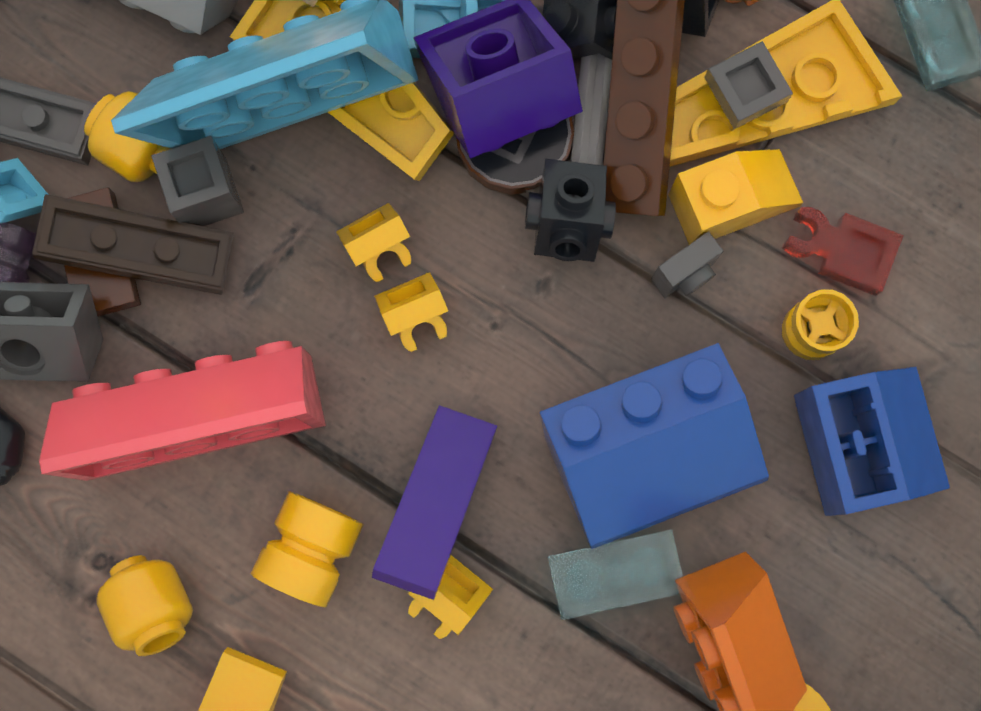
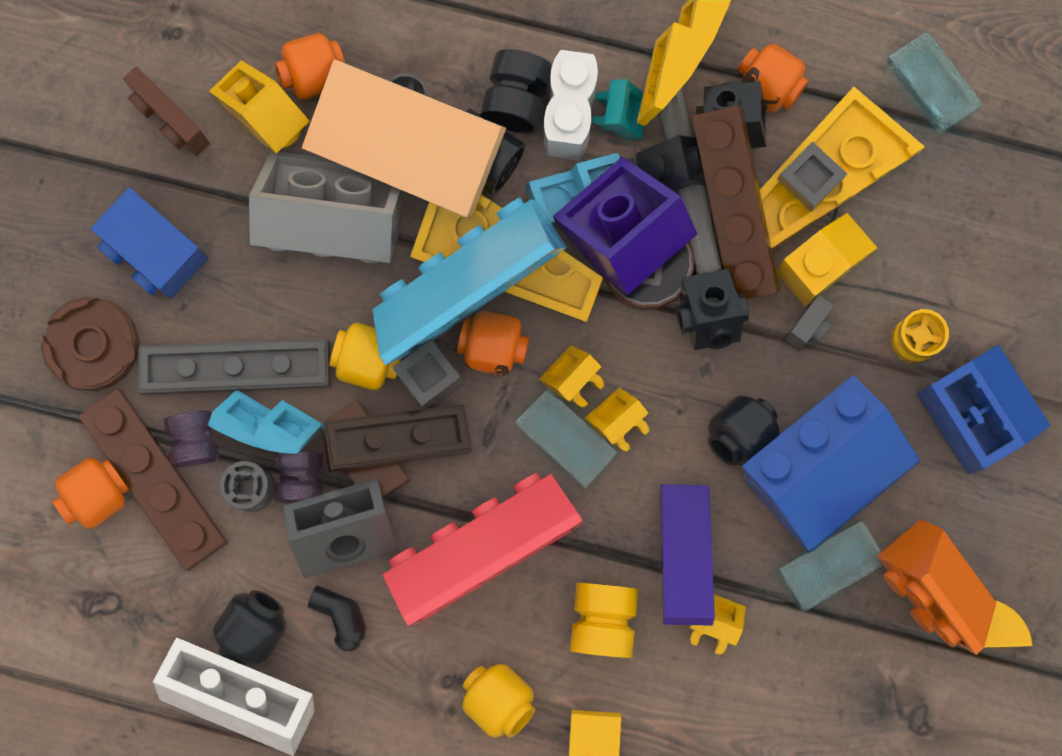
camera: 20 degrees left, 0 degrees up
(290, 168) = (492, 342): none -> orange head
(341, 312) = (566, 438): none -> clear light blue plate
(559, 368) = (742, 429): none -> black head
(852, 251) = (925, 273): clear red plate -> none

